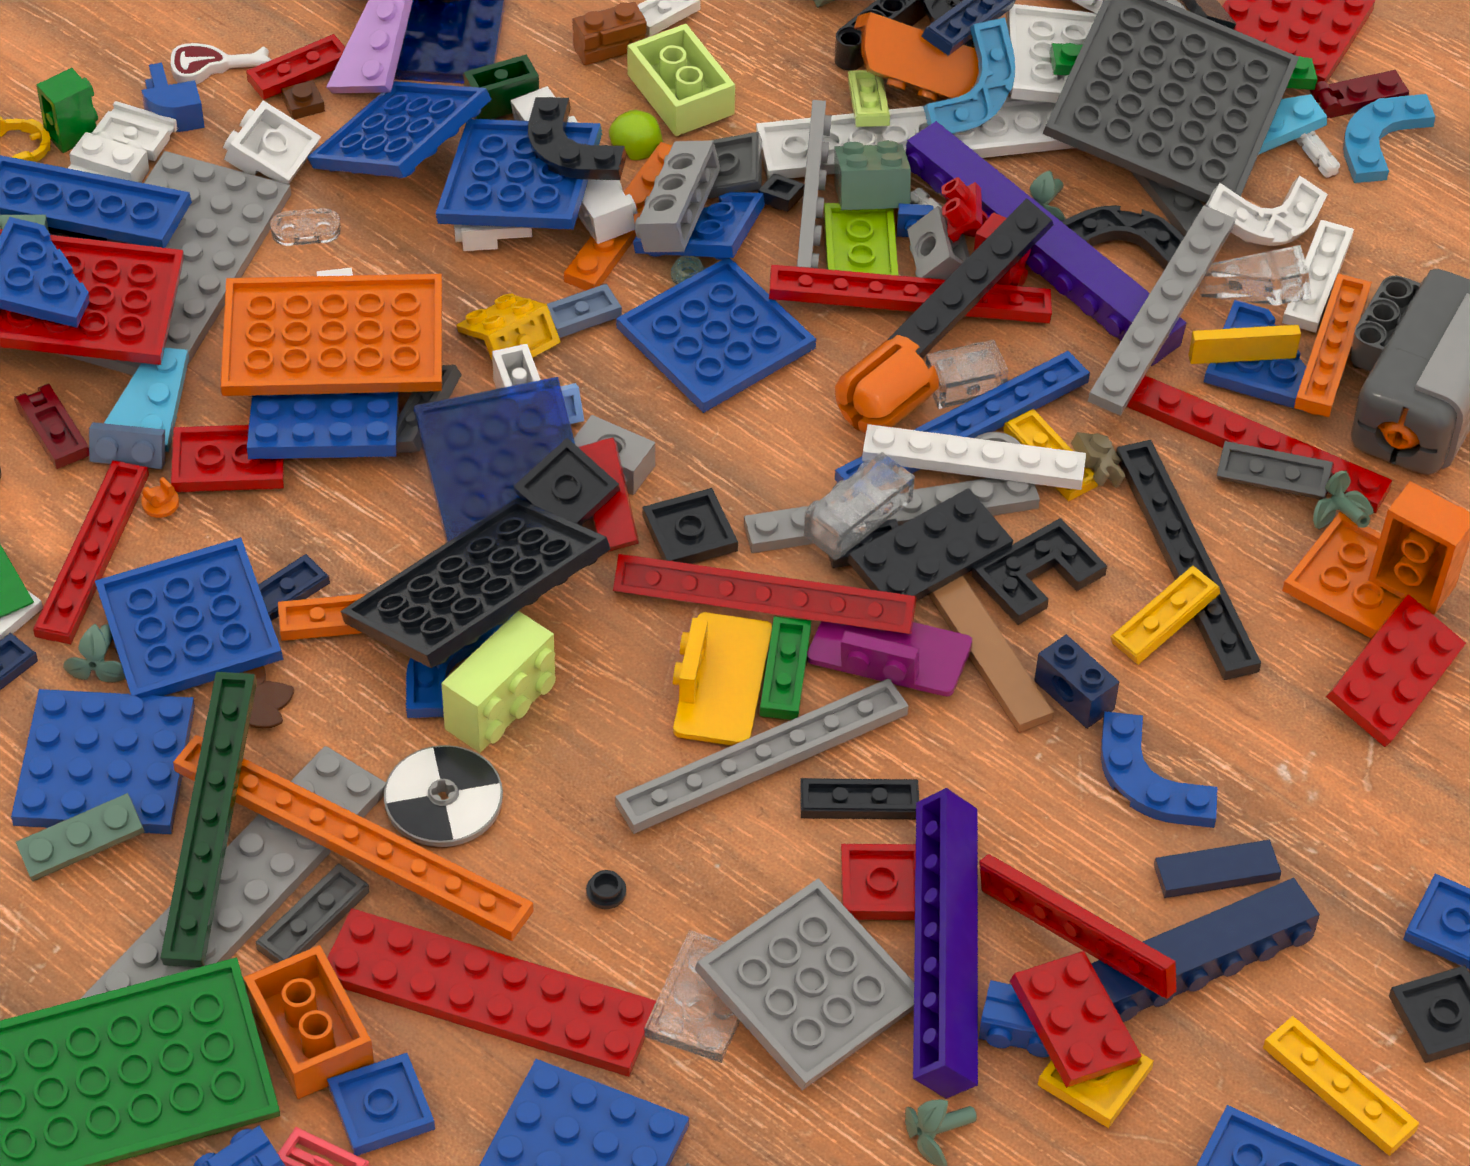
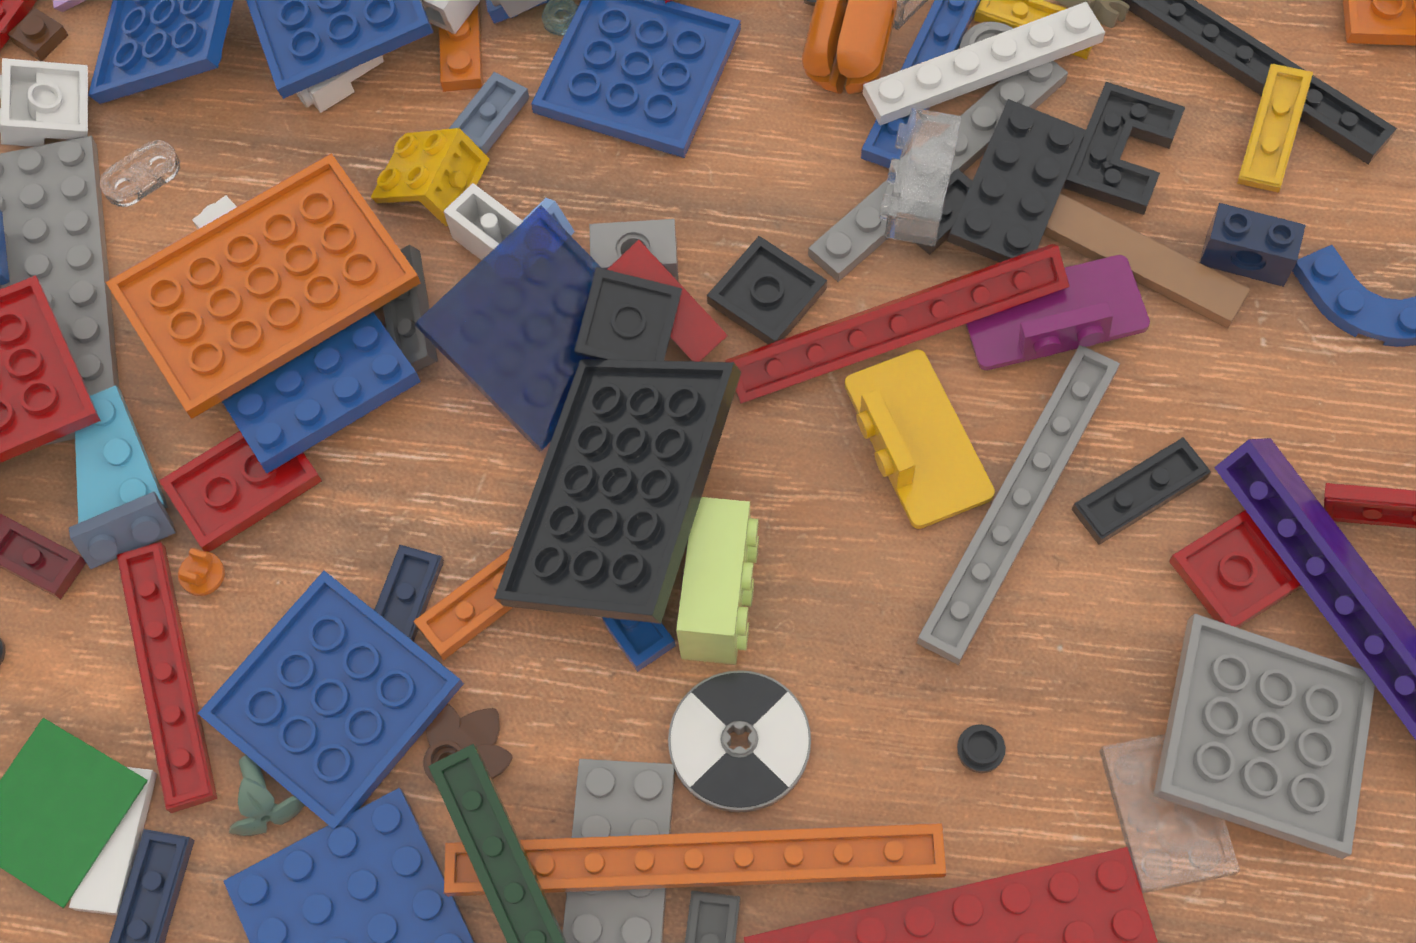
camera: 25 degrees left, 15 degrees up
(785, 668) = (971, 391): green plate -> none

